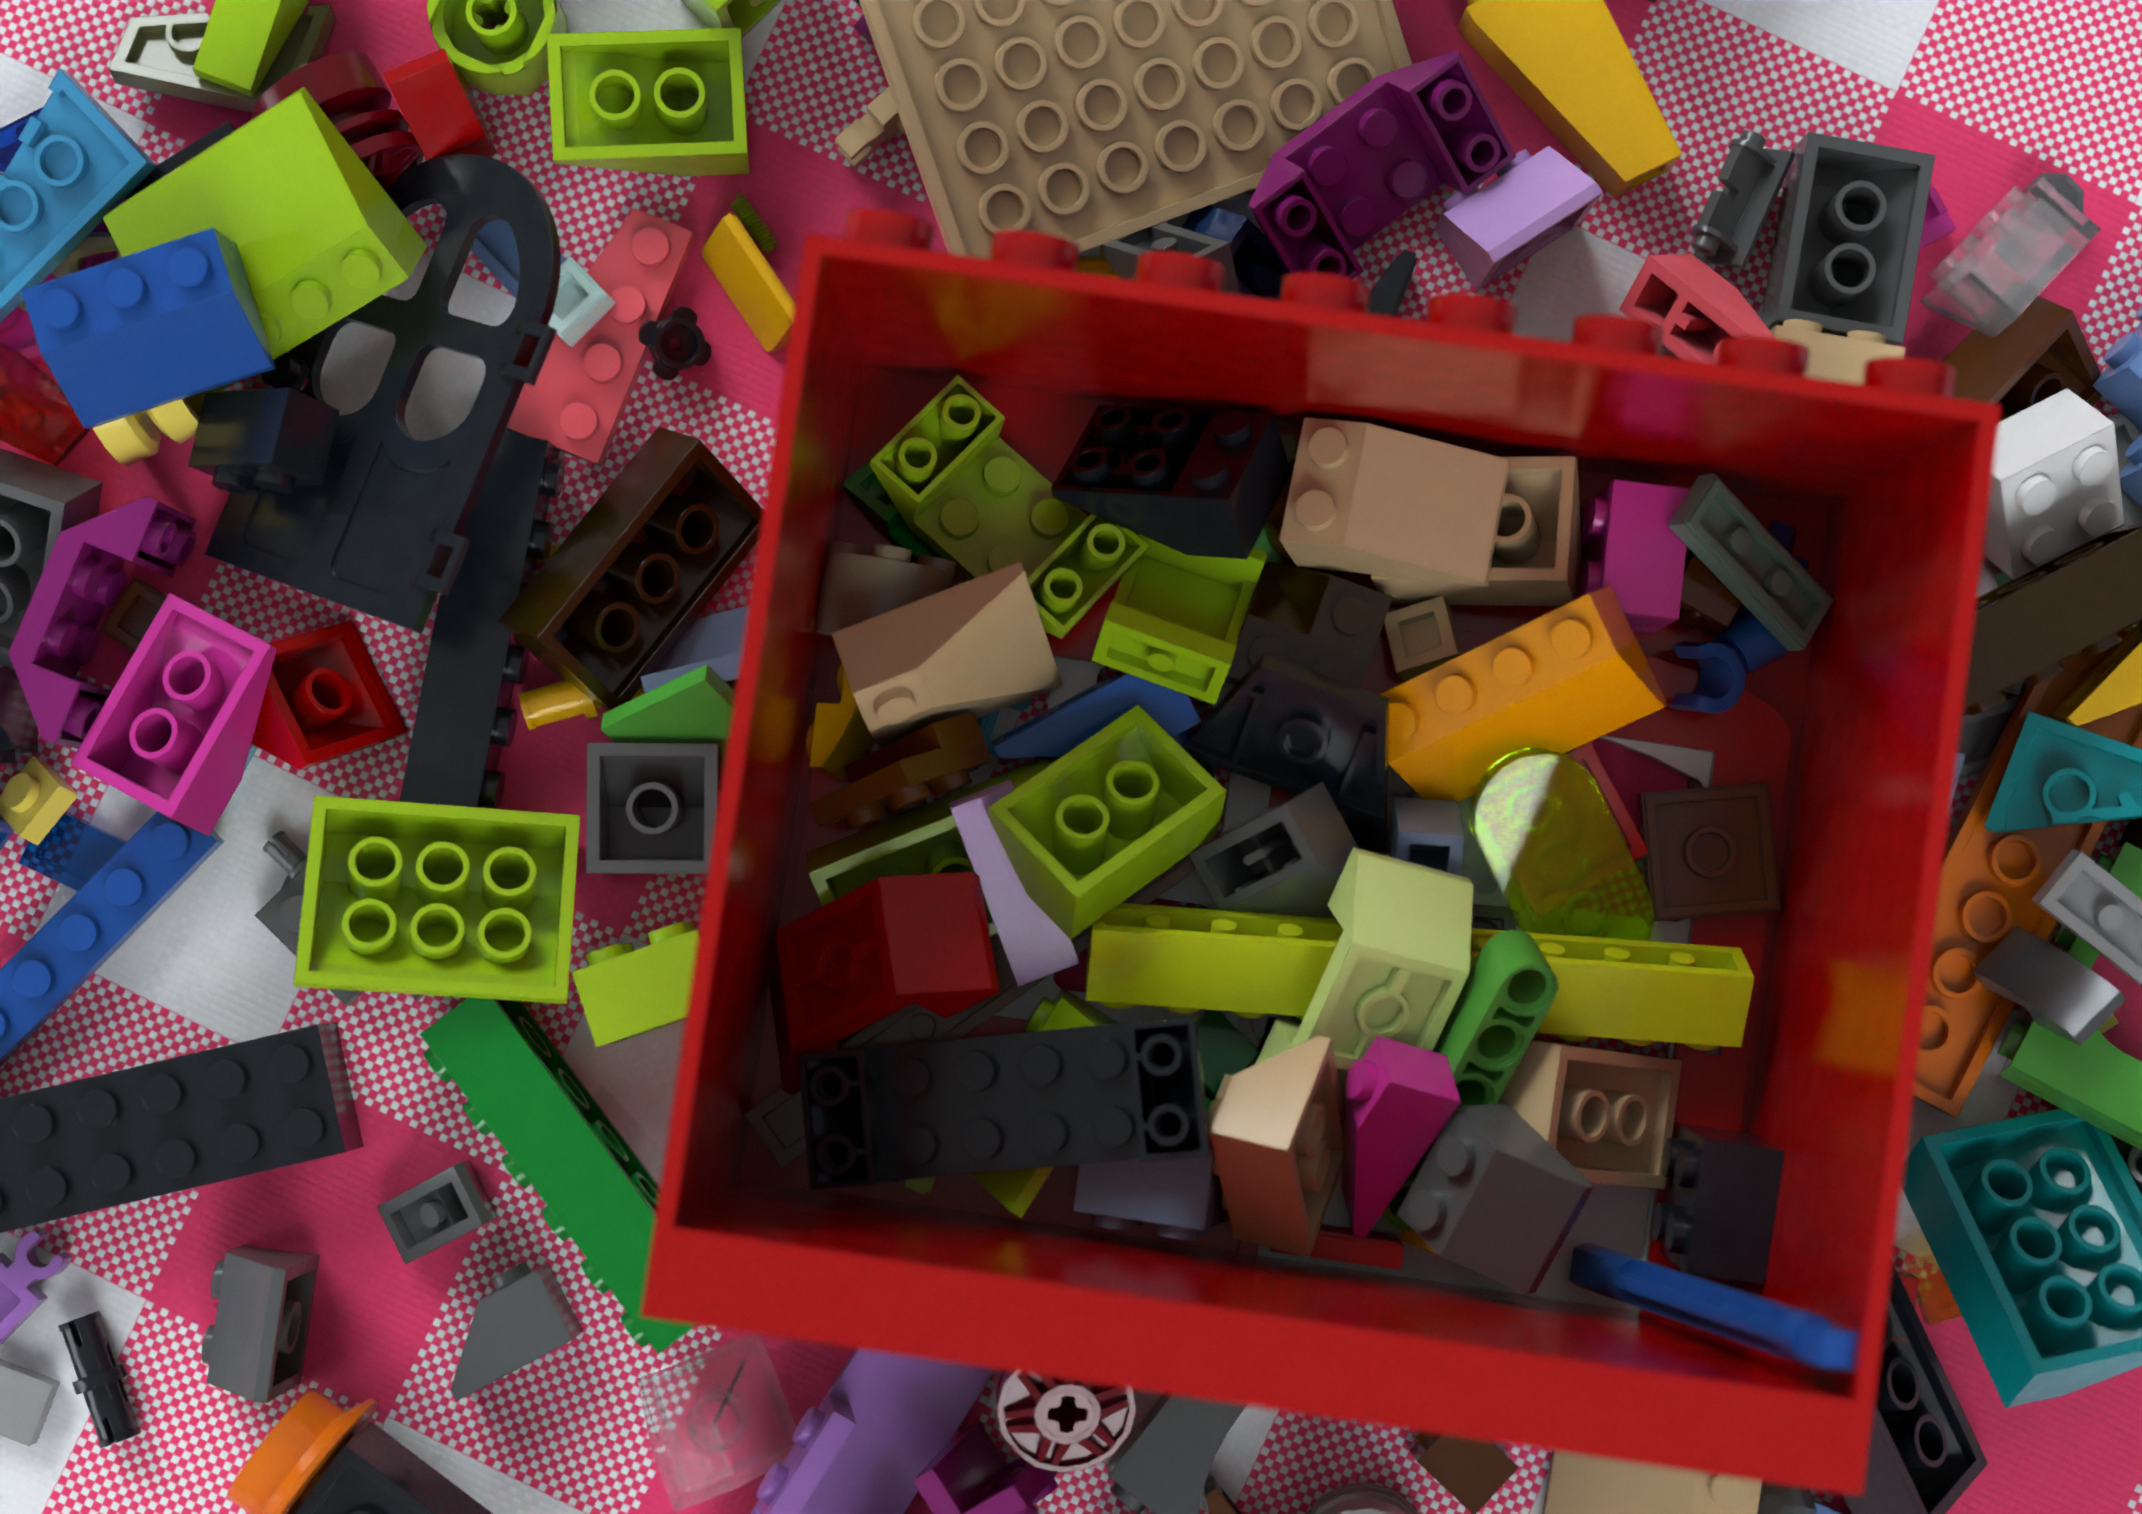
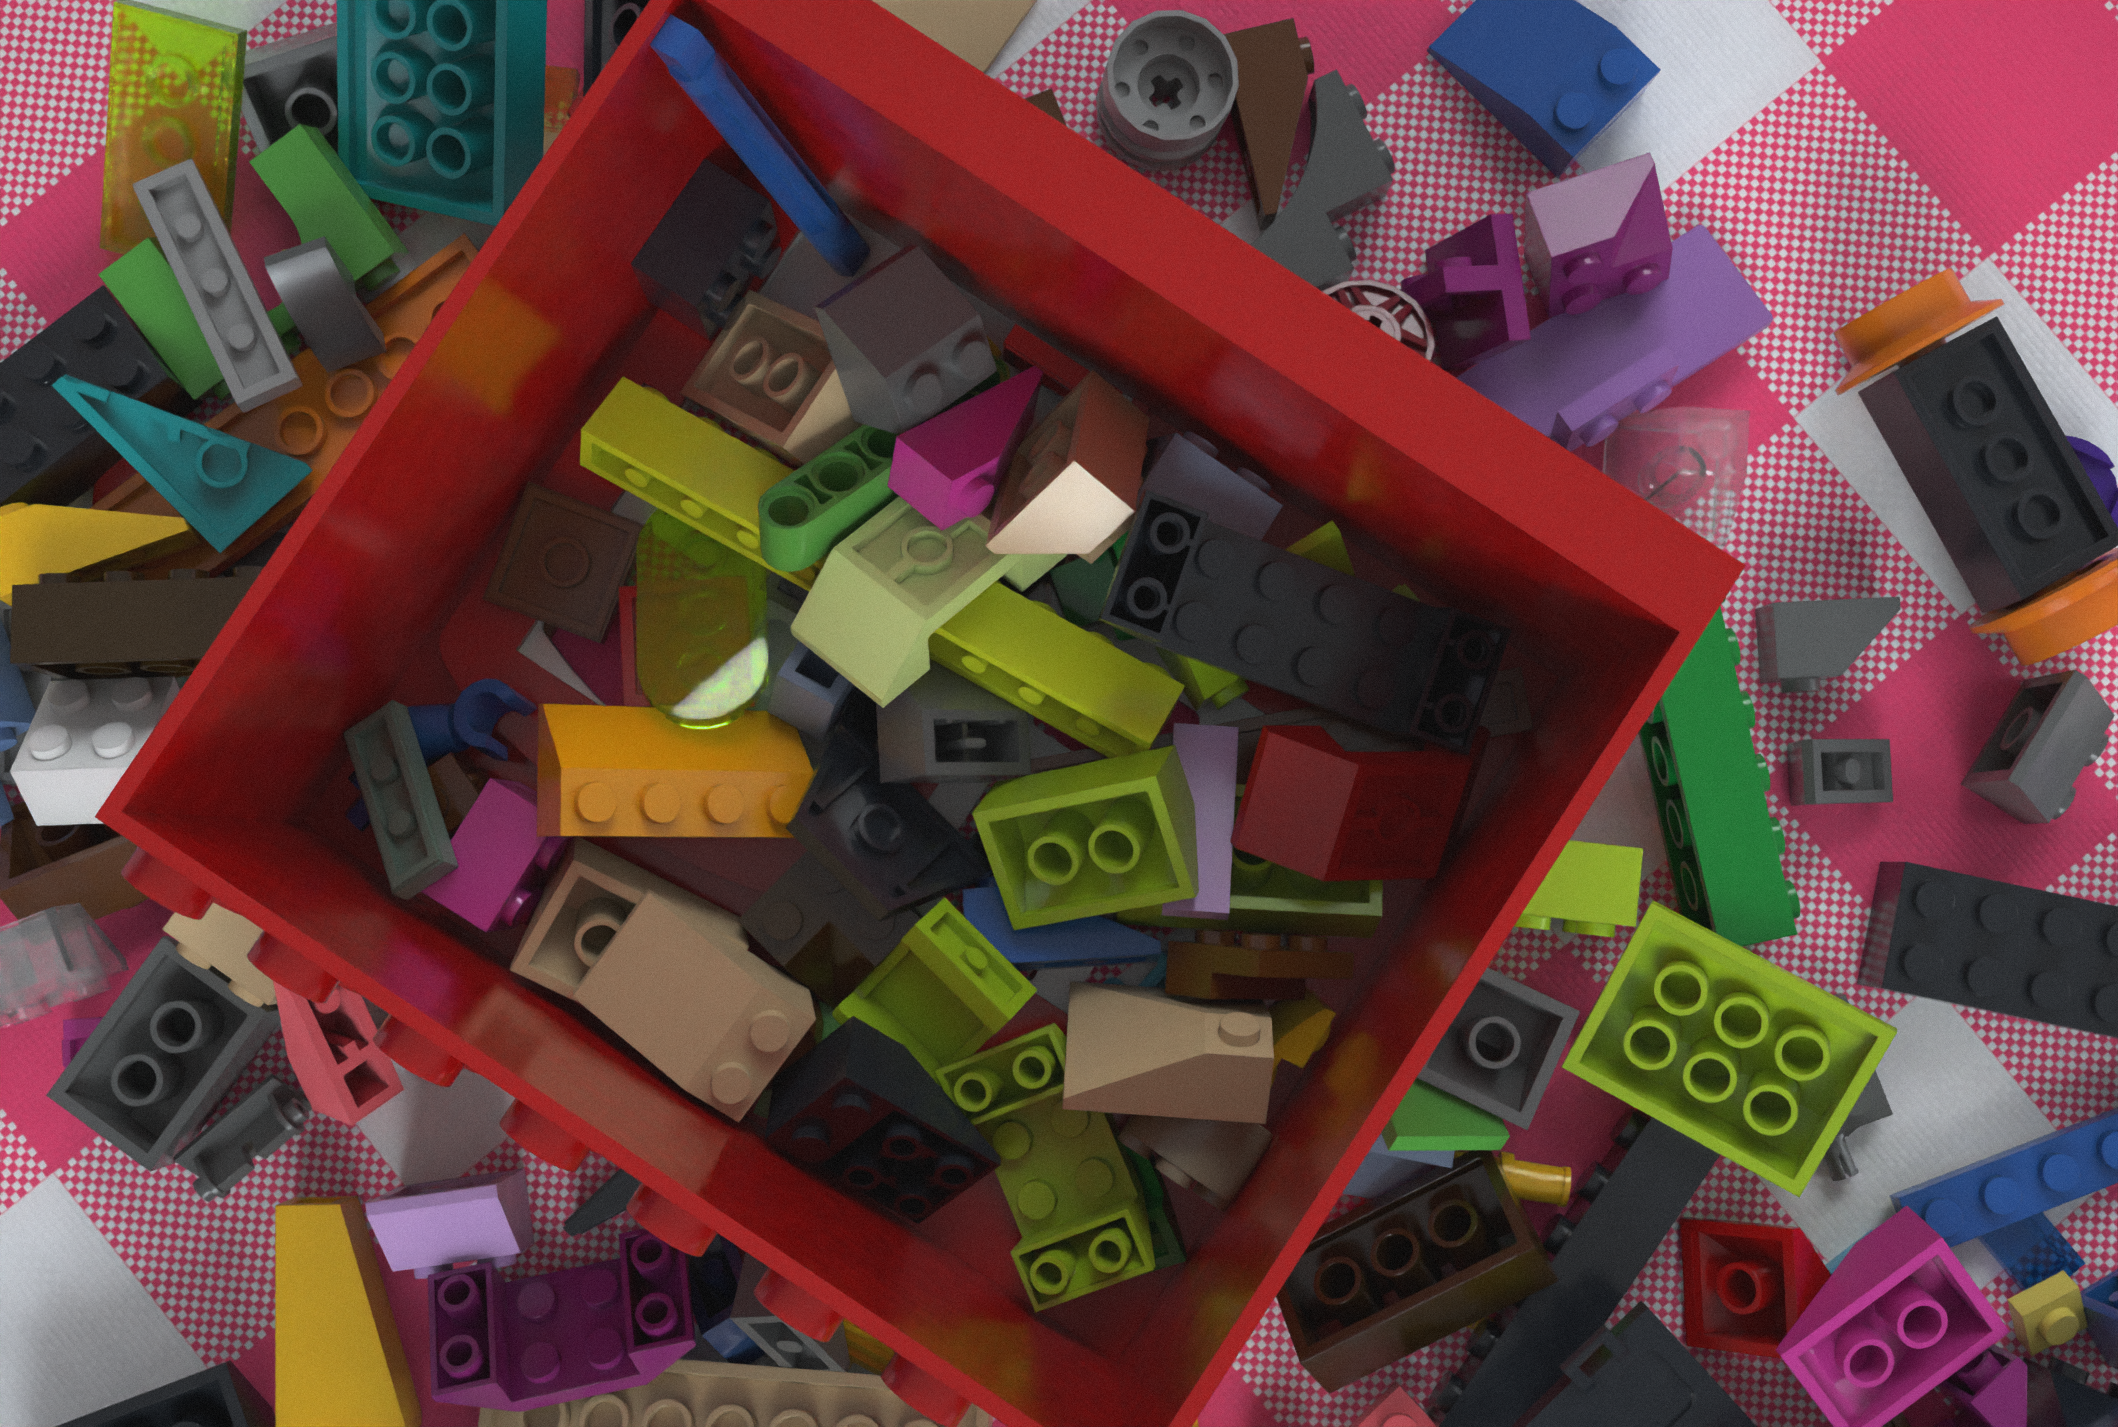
camera: 155 degrees left, 0 degrees up
(1422, 637) = (727, 872): tan plate -> none

